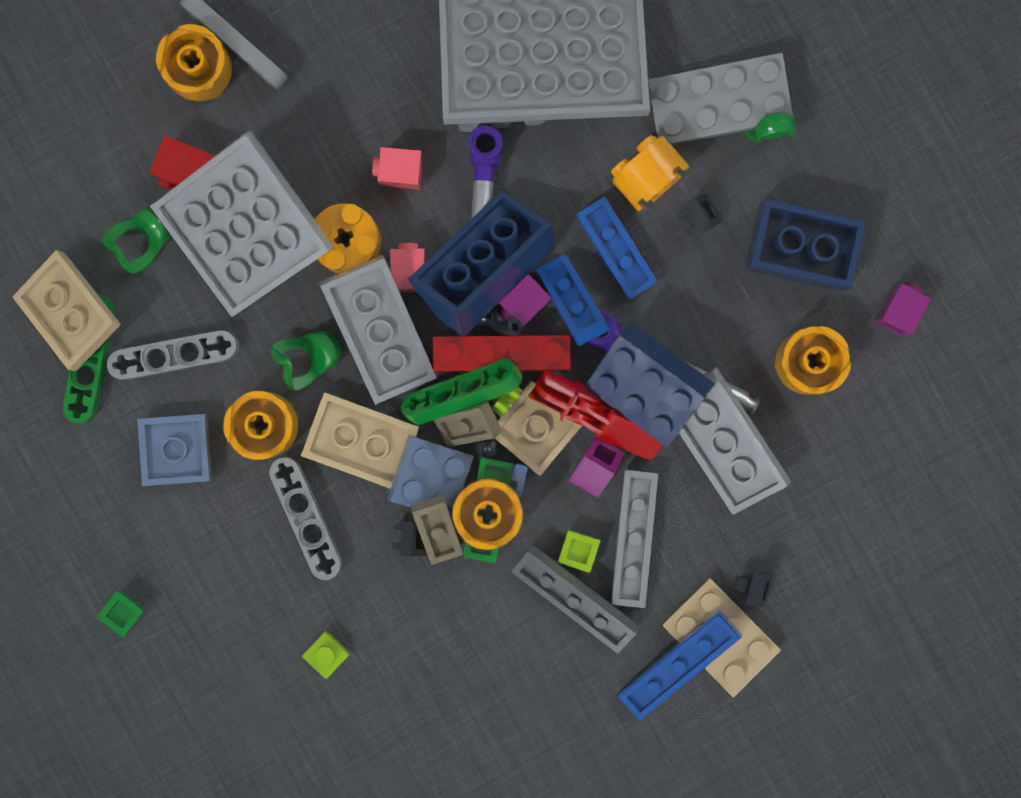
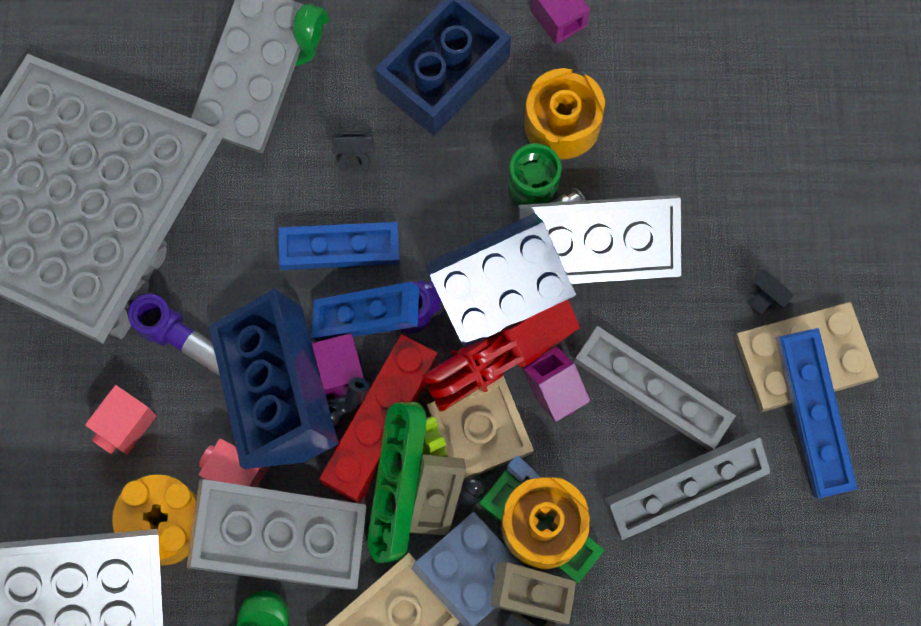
camera: 65 degrees left, 15 degrees down
(578, 551) = (637, 454): lime plate -> none
(649, 172) = (280, 168): light orange brick -> none
(749, 365) = (534, 175): none -> green wheel

